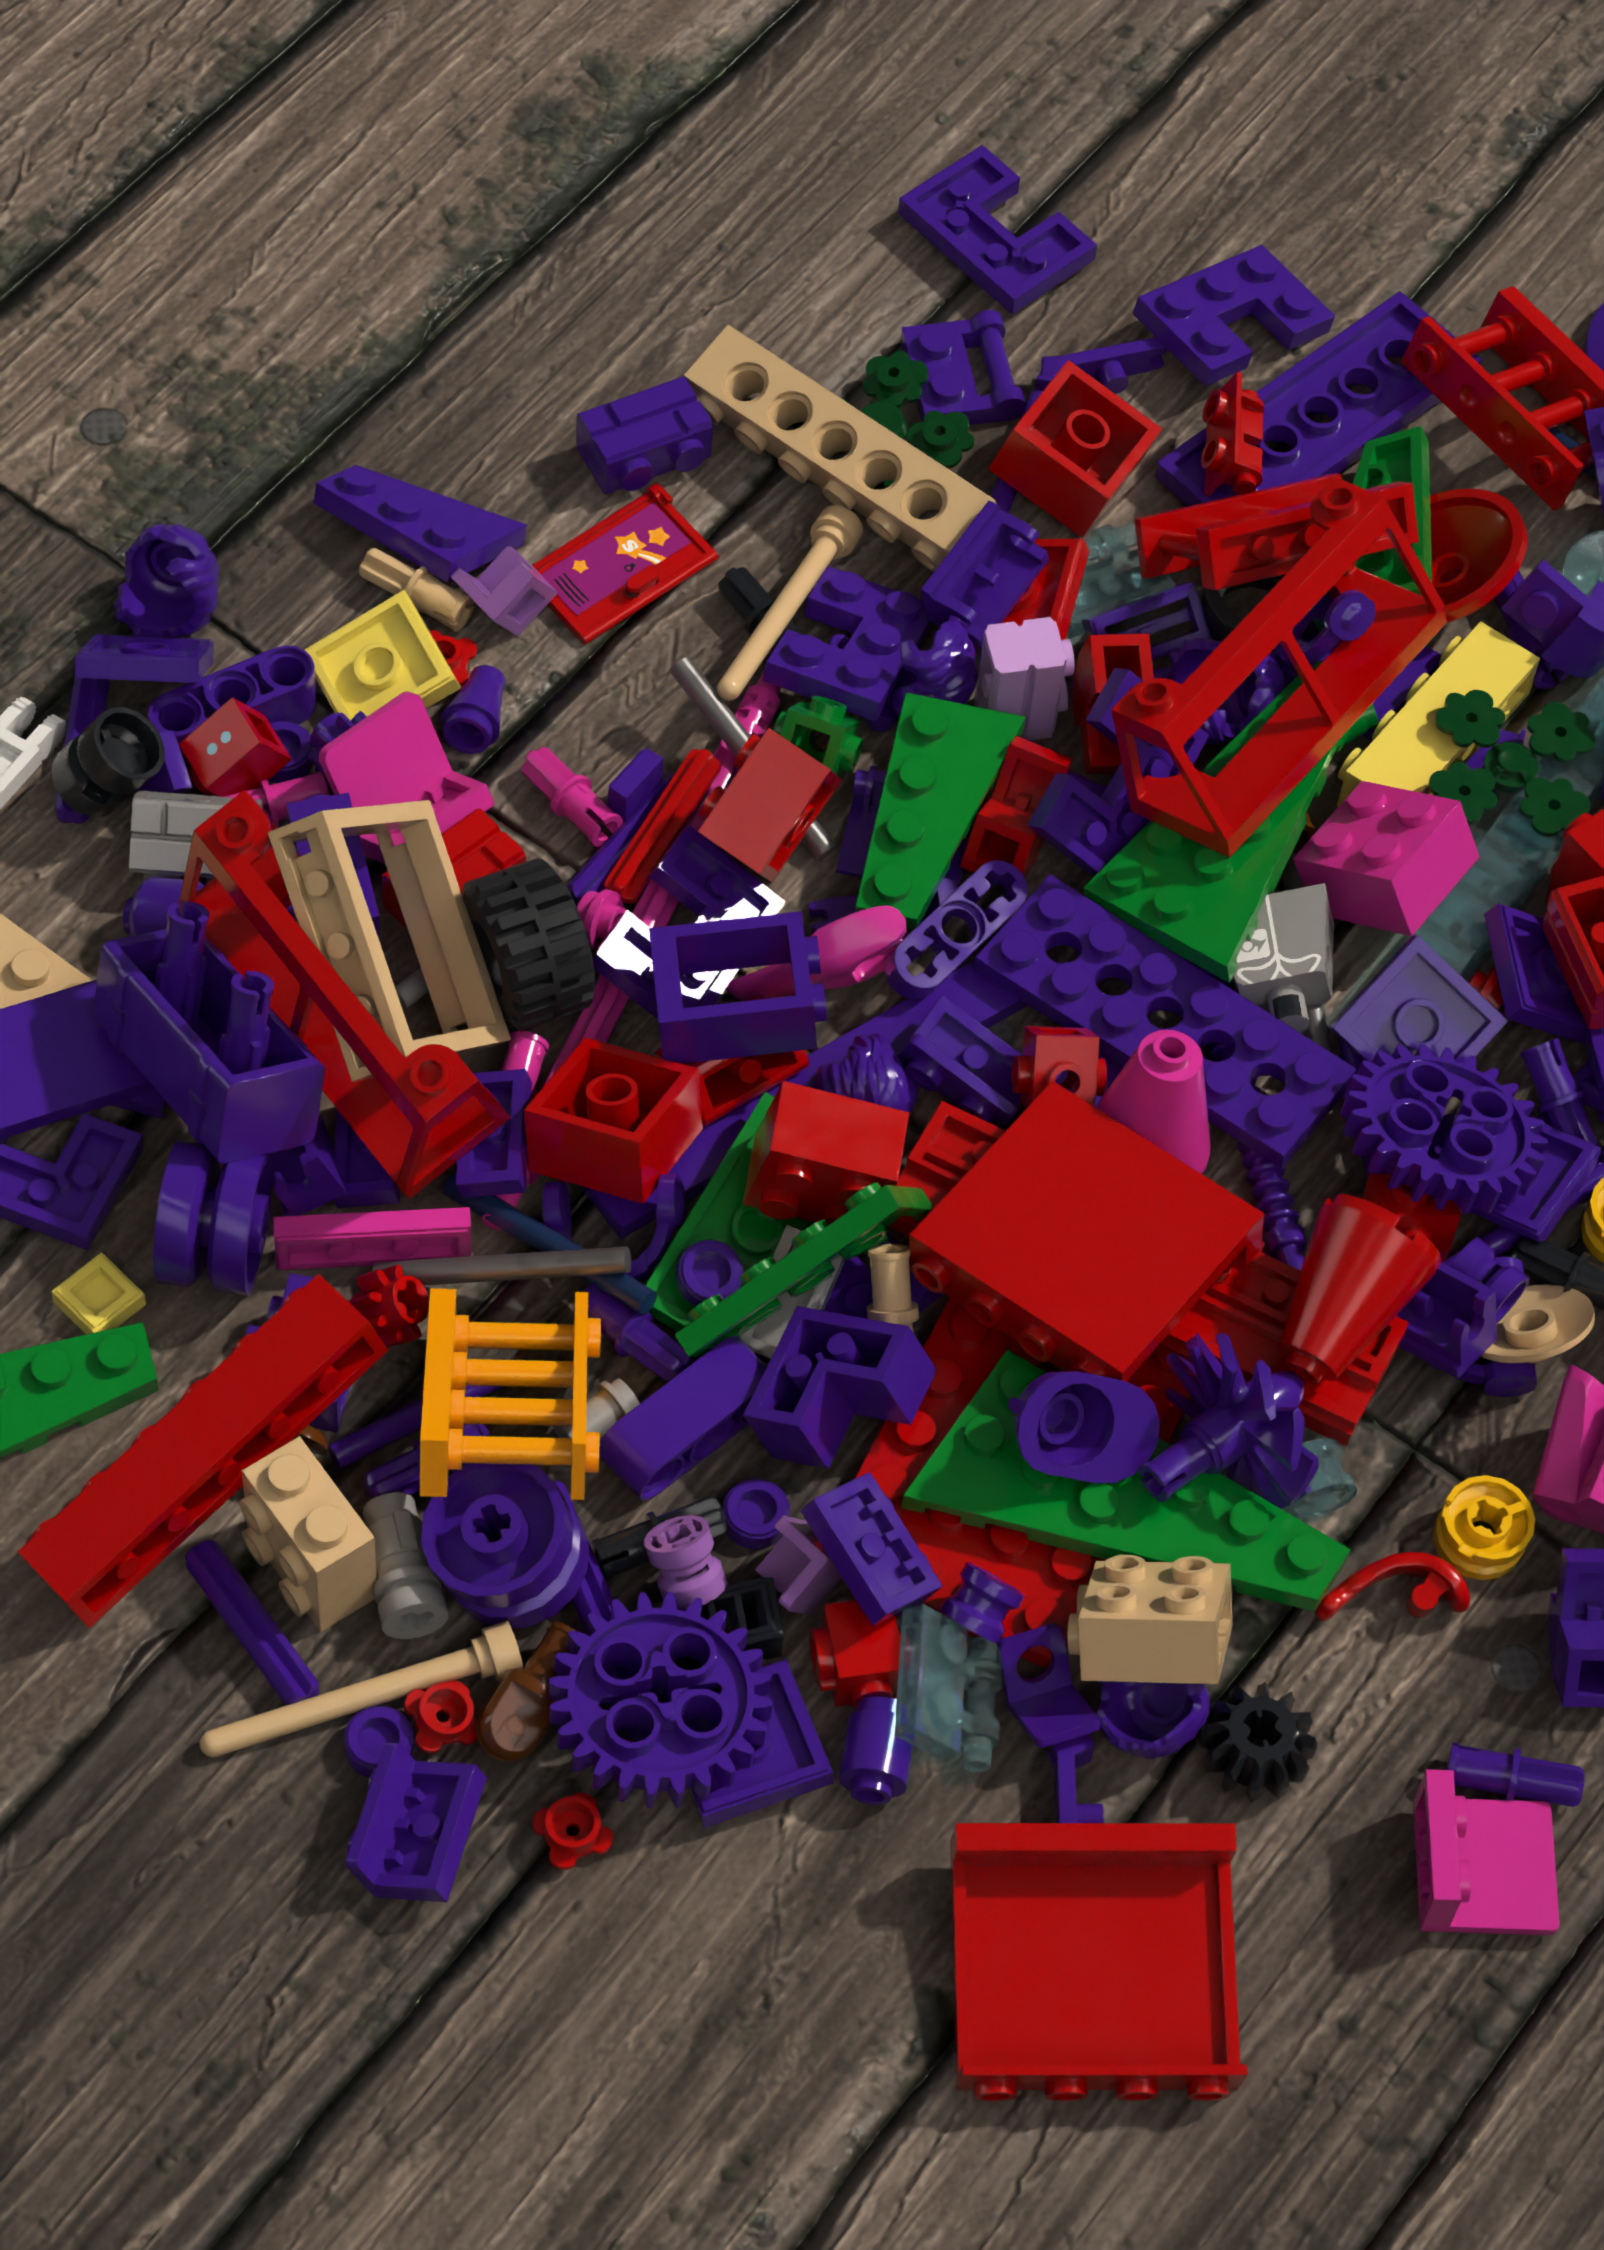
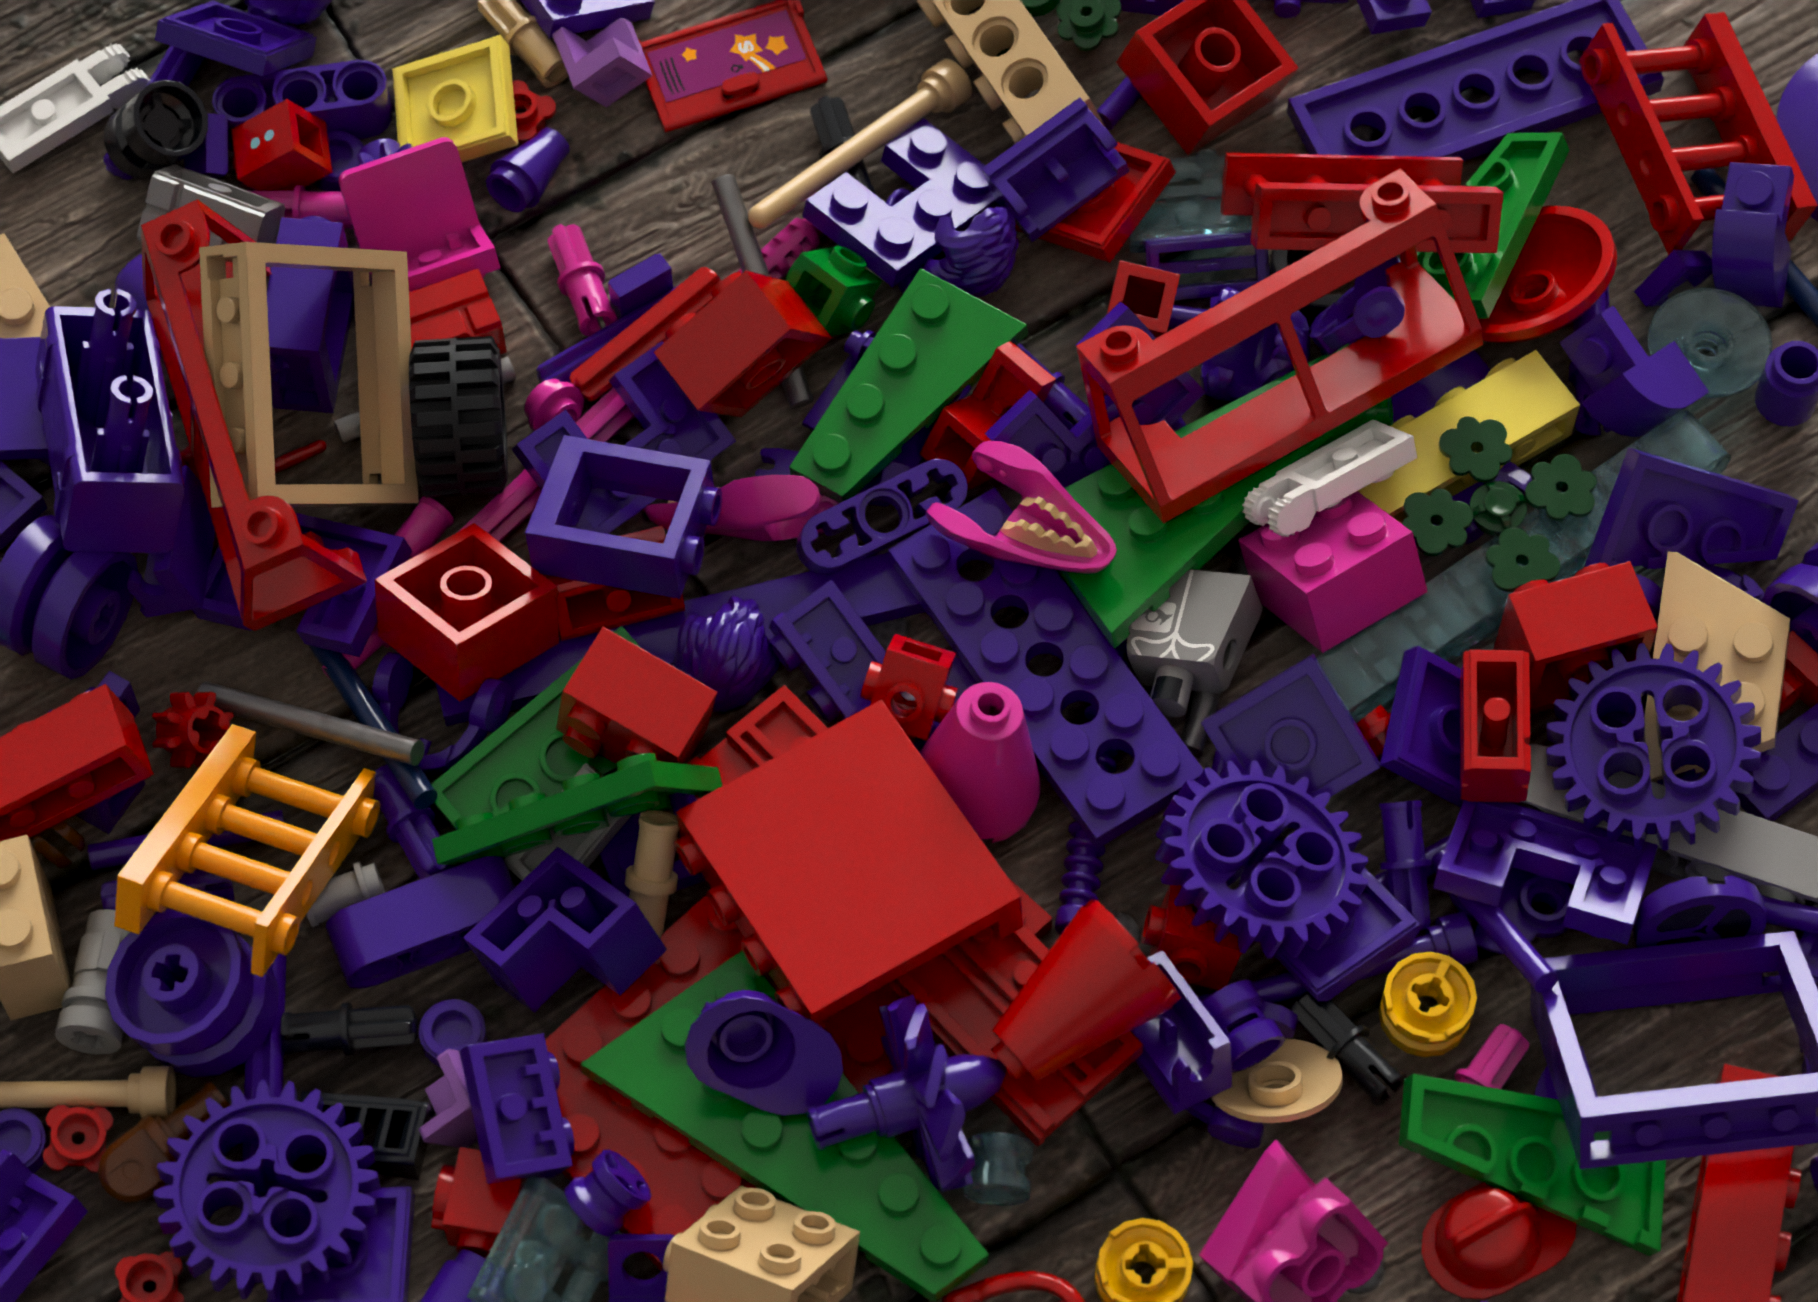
camera: 25 degrees right, 5 degrees up
(370, 1237) = (209, 658): dark pink tile -> none
(683, 1555) = (352, 1062): medium lavender wheel -> none
(708, 1270) = (494, 783): dark purple tile -> none
(1025, 673) = (1052, 283): lavender brick -> none
(1119, 889) = (1045, 527): none -> dark pink animal
(1231, 420) = (1377, 75): red hinge -> none
(1358, 776) = (1328, 477): none -> white hinge
(1568, 519) = (1673, 272): none -> dark purple tile

